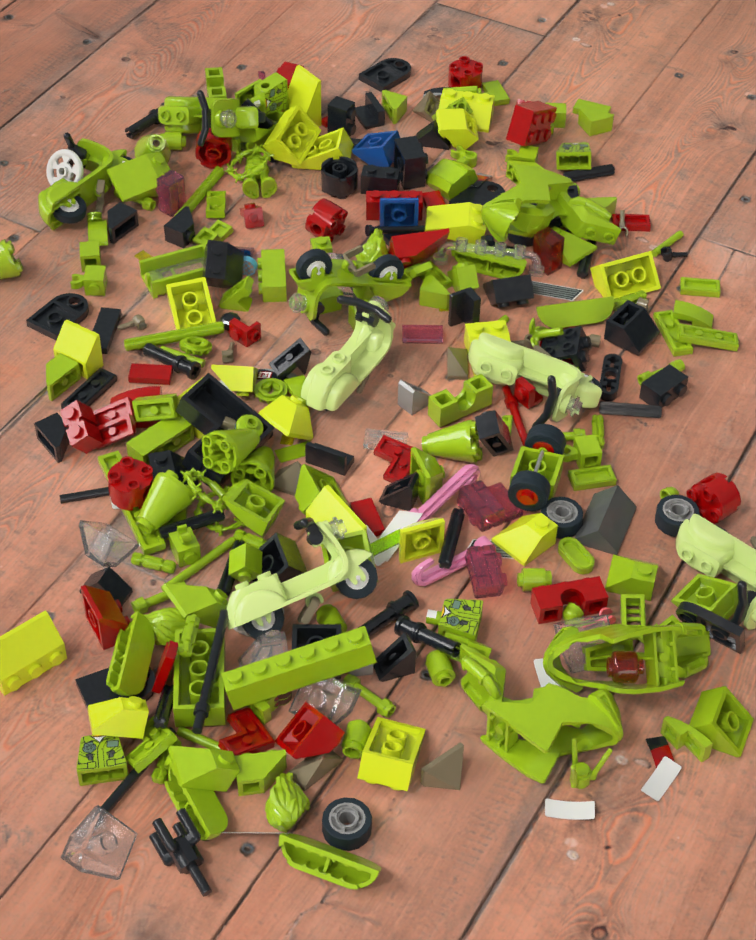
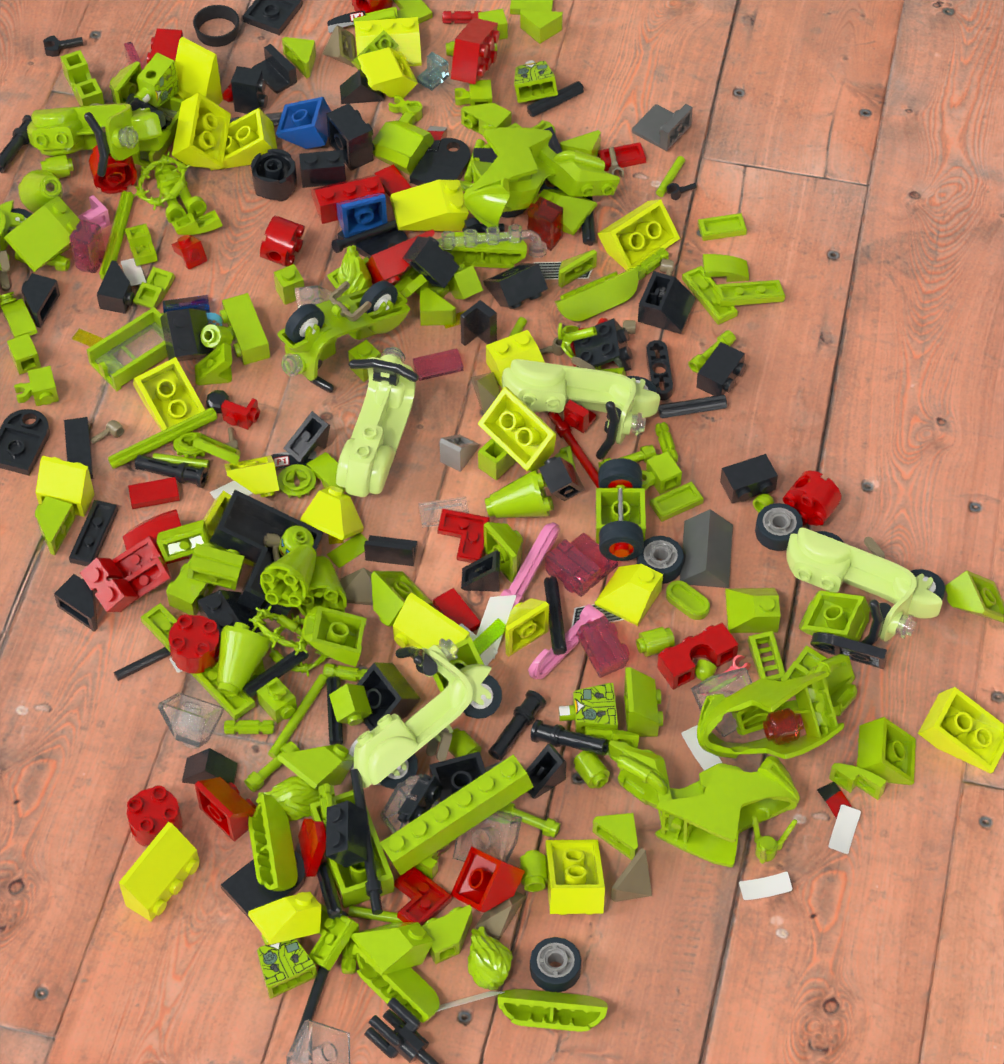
camera: 15 degrees left, 10 degrees up
(38, 599) = (150, 812): none -> red brick
(173, 430) = (216, 566): none -> lime brick
(190, 177) = (97, 214): none -> bright pink panel
(193, 657) = (346, 834): none -> black brick
(201, 221) = (133, 272): none -> white sticker
(207, 64) = (53, 45): none -> black bar
(212, 349) = (216, 448): none -> lime tile
(242, 269) = (215, 335): none -> lime brick
(259, 198) = (189, 226): none -> lime slope
(277, 643) = (427, 791): none -> black hinge
(336, 68) = (214, 12): none -> black tyre
(440, 252) = (431, 261): none -> black brick
(444, 724) = (618, 832): none -> lime slope
(467, 384) = (519, 430): none -> neon yellow slope
(497, 137) = (436, 72): none -> clear light blue panel
(503, 624) = (641, 704): none -> lime slope
(564, 289) = (576, 266): none -> lime slope
(661, 471) = (749, 478): none -> black brick
(672, 208) = (663, 126): none -> dark grey bracket

